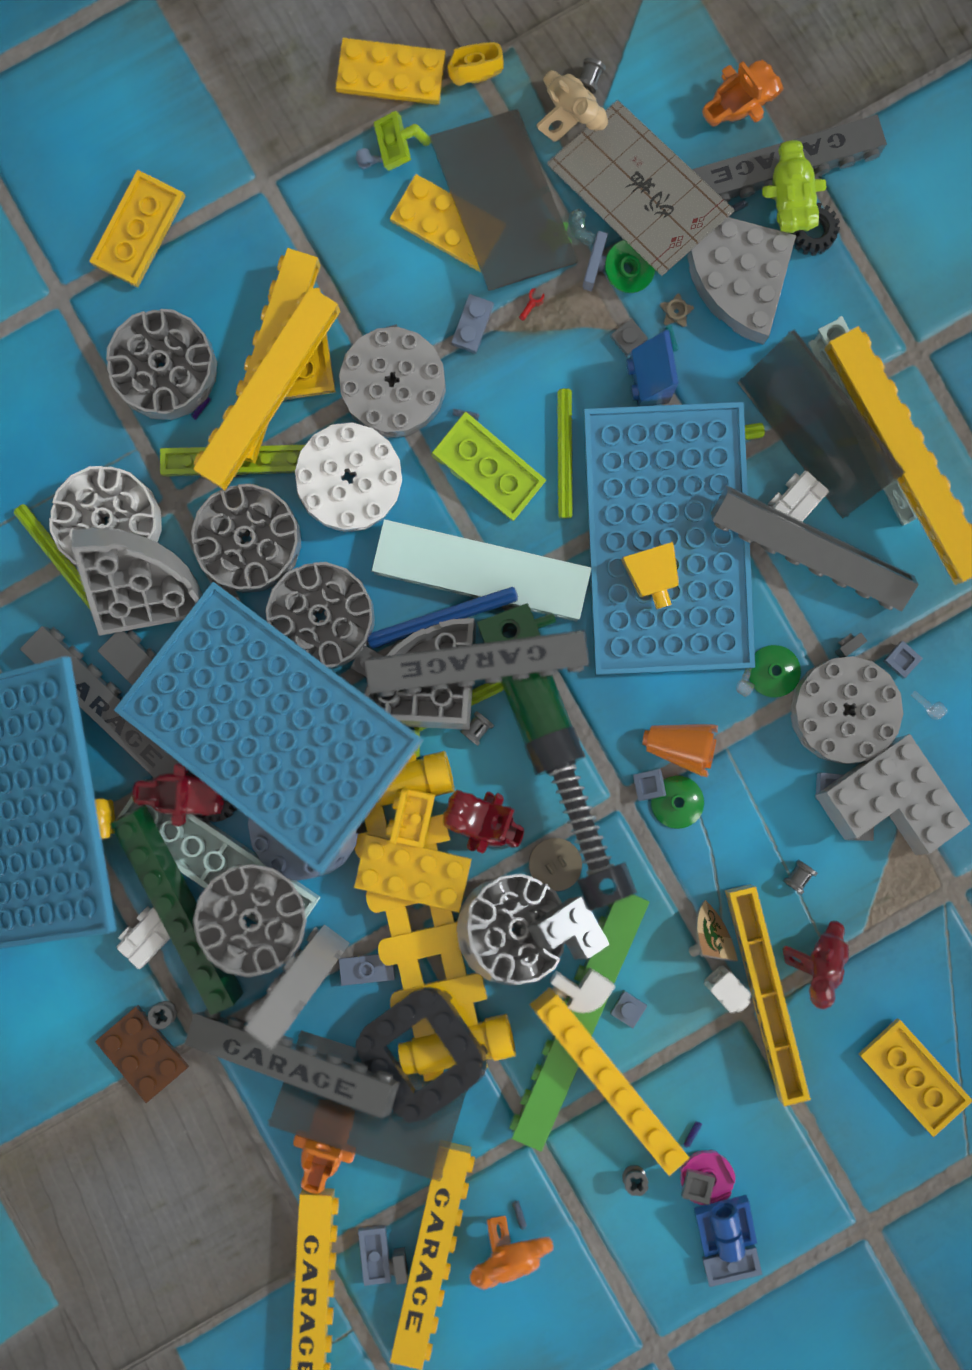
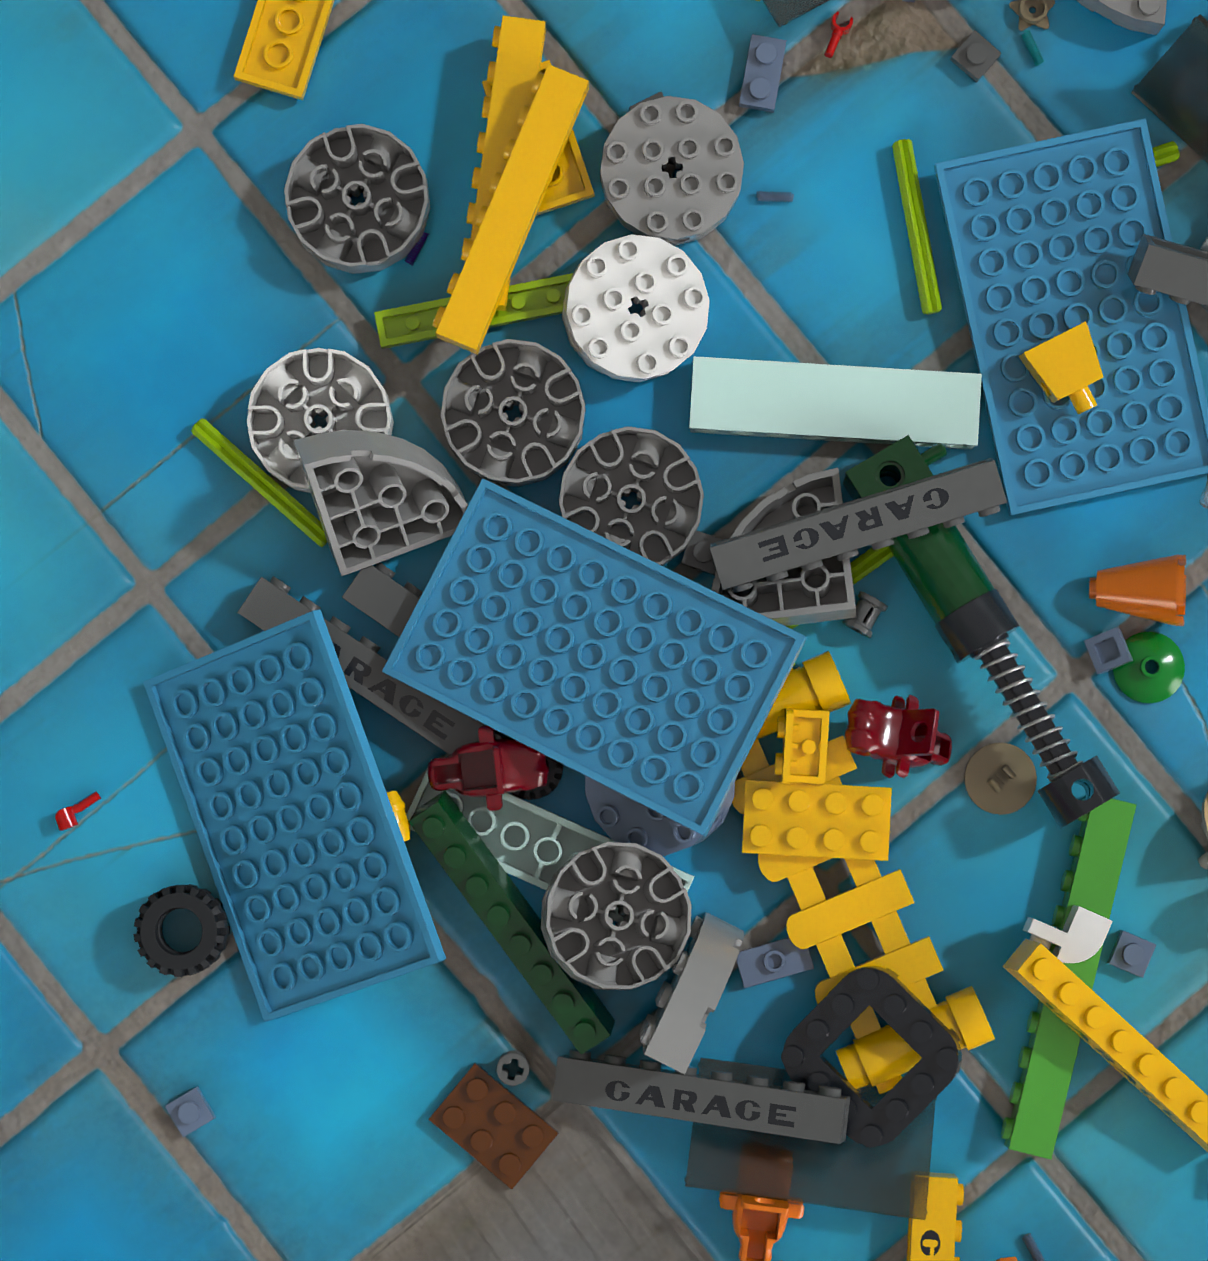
camera: 15 degrees left, 0 degrees up
(144, 939) = (474, 967): white brick -> none
(458, 611) = (814, 462): blue axle -> none
(487, 935) = (962, 871): light grey brick -> none
(488, 466) = (819, 262): lime hinge -> none
(569, 923) = (1042, 850): brick -> none
(638, 1173) = (1190, 1172): dark grey bush -> none
(653, 371) = (1019, 97): blue slope -> none

